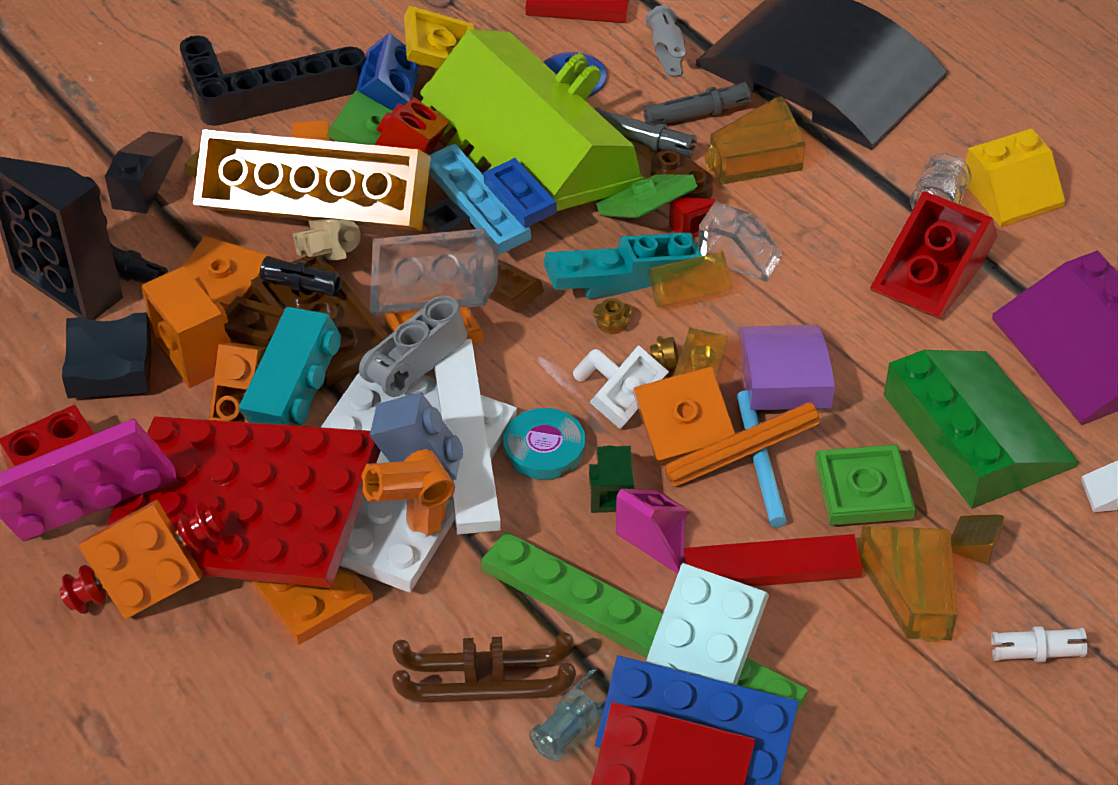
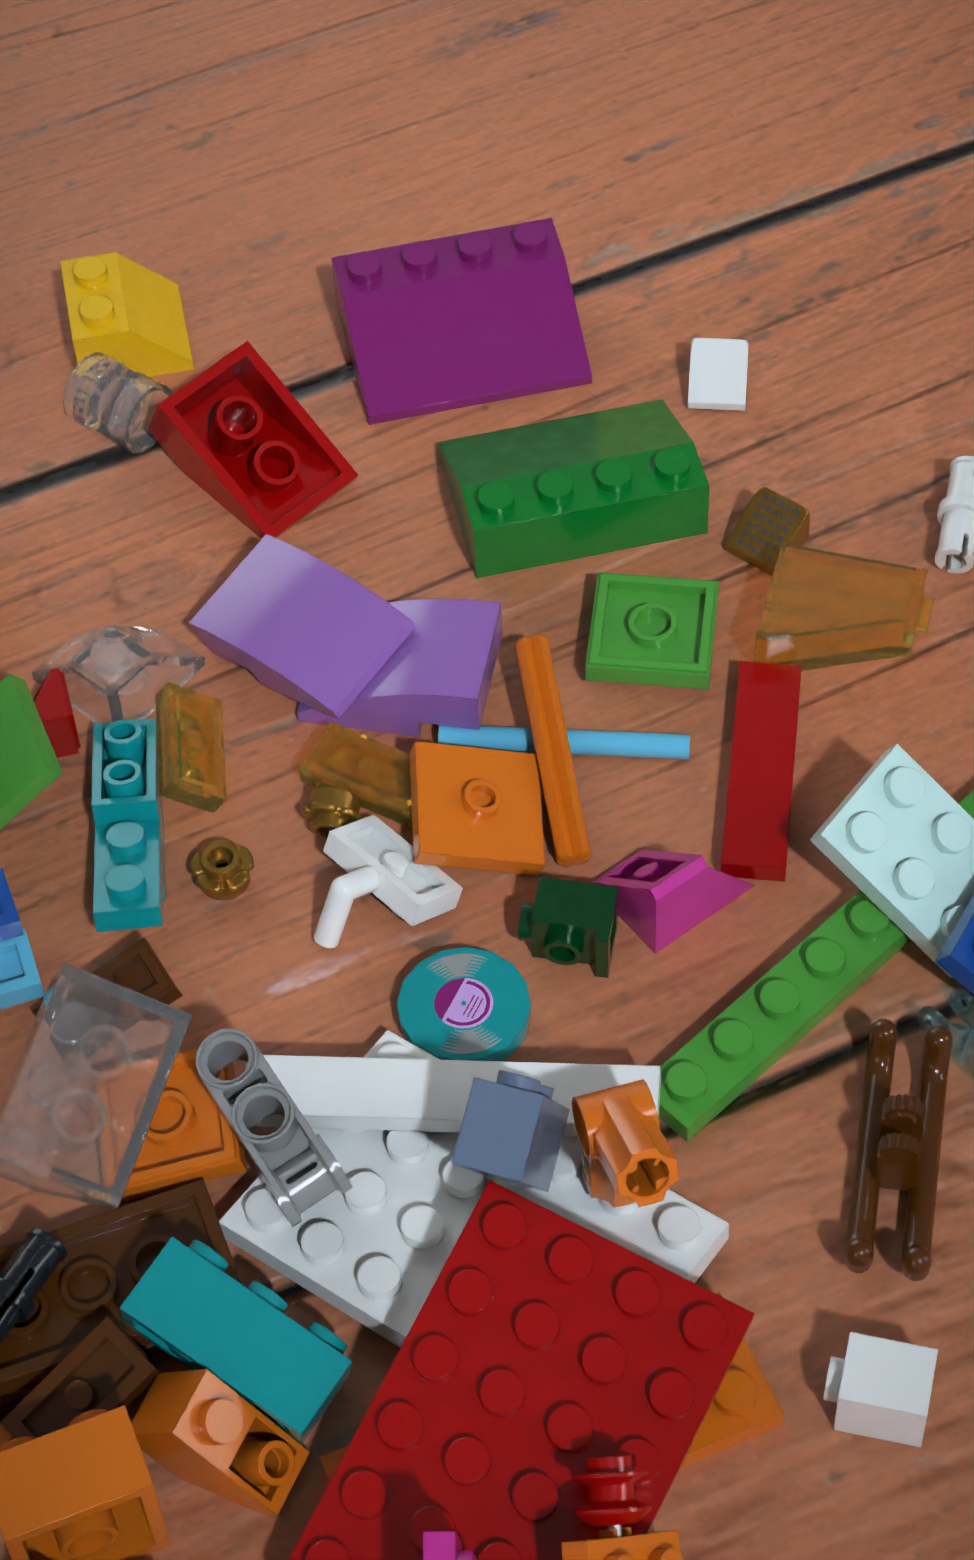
camera: 75 degrees left, 5 degrees up
(316, 680) = (882, 1388): none -> white brick
(790, 302) = (301, 626): none -> medium lavender slope

